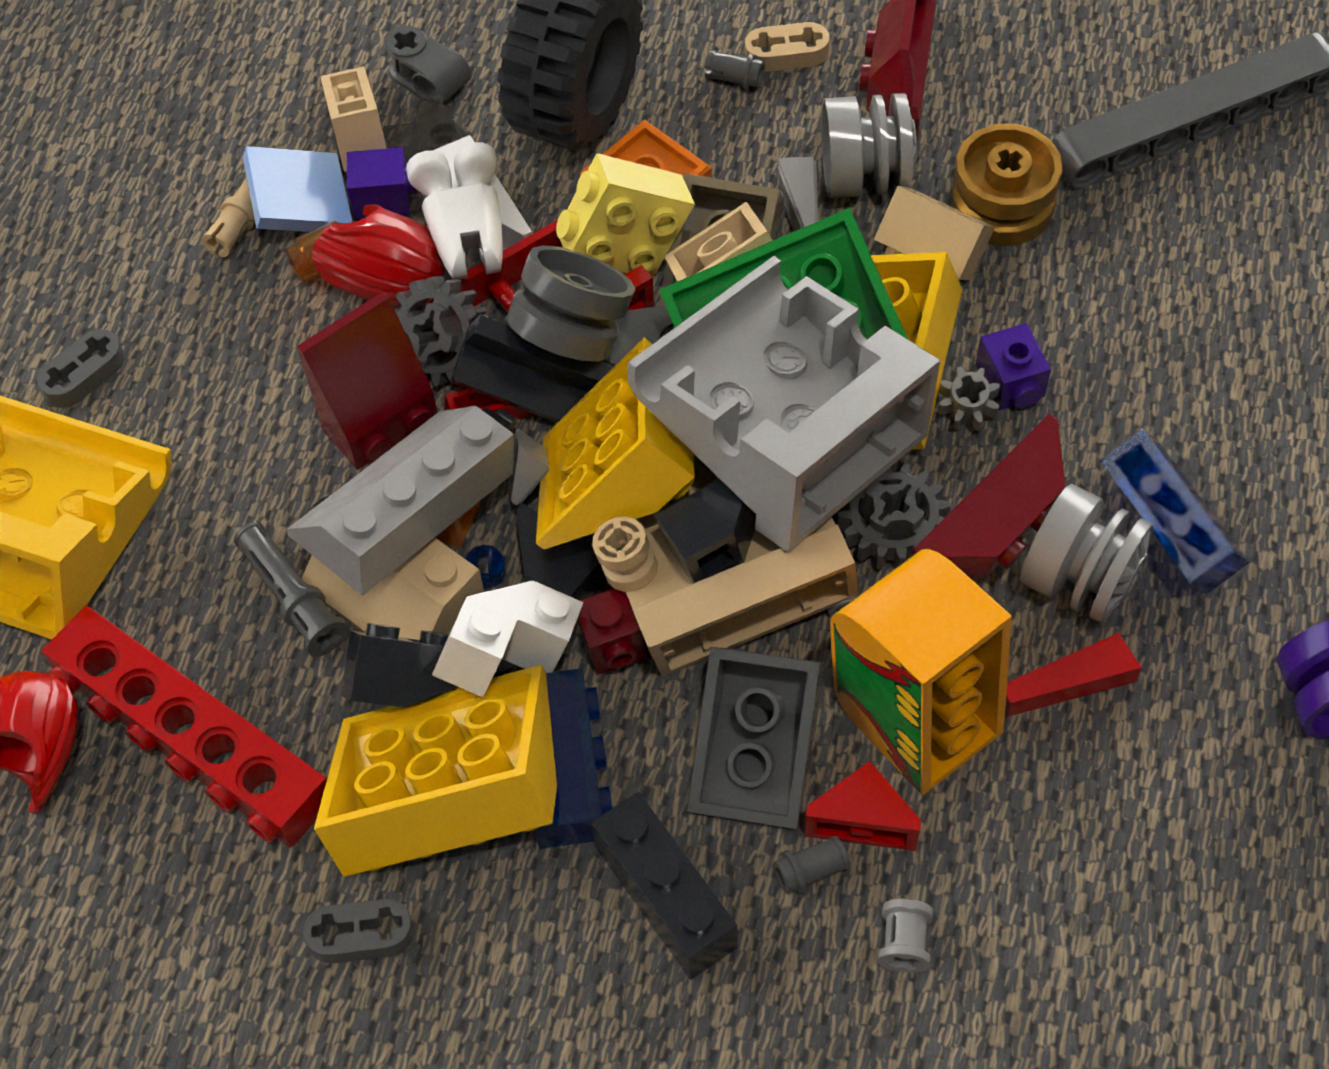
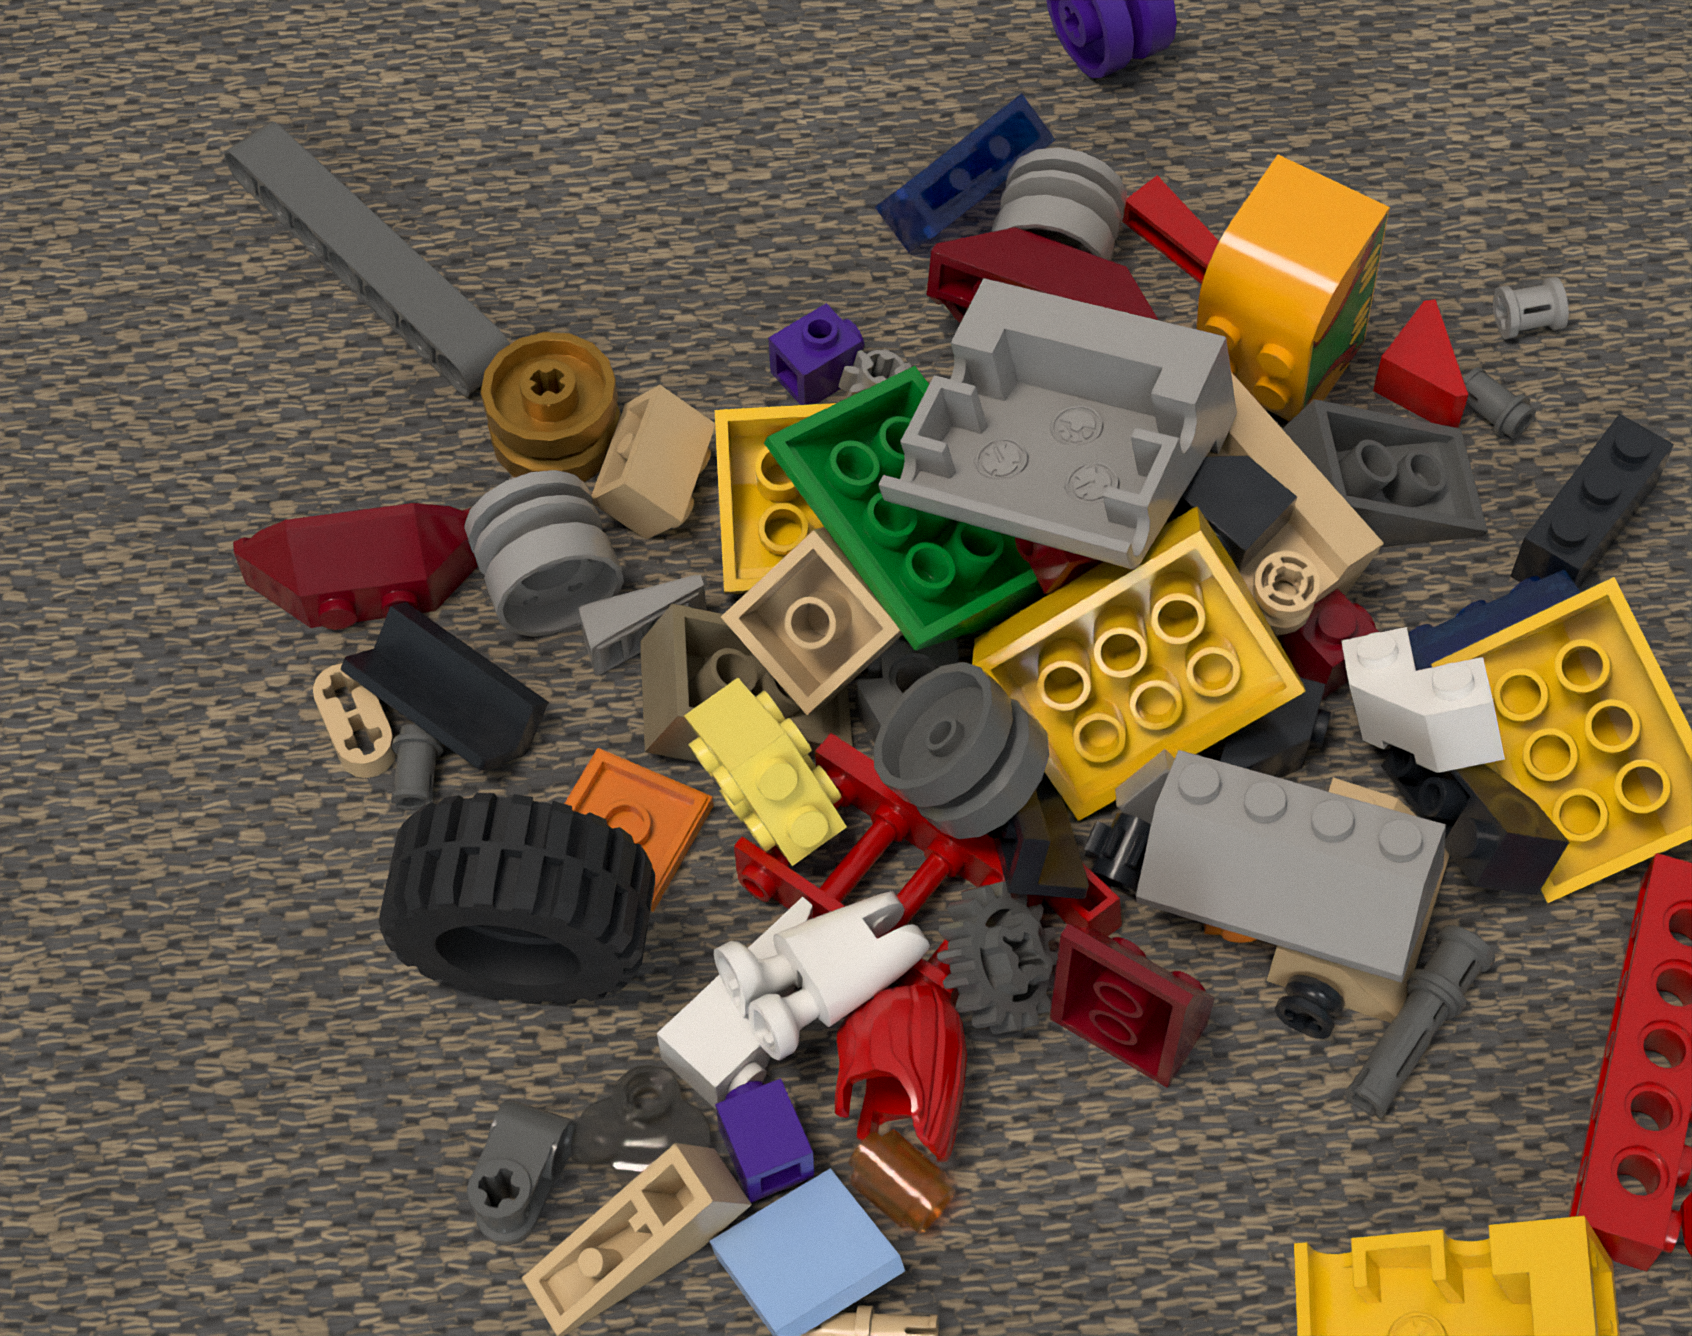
camera: 110 degrees left, 0 degrees up
(779, 84) = (448, 689): none -> black panel

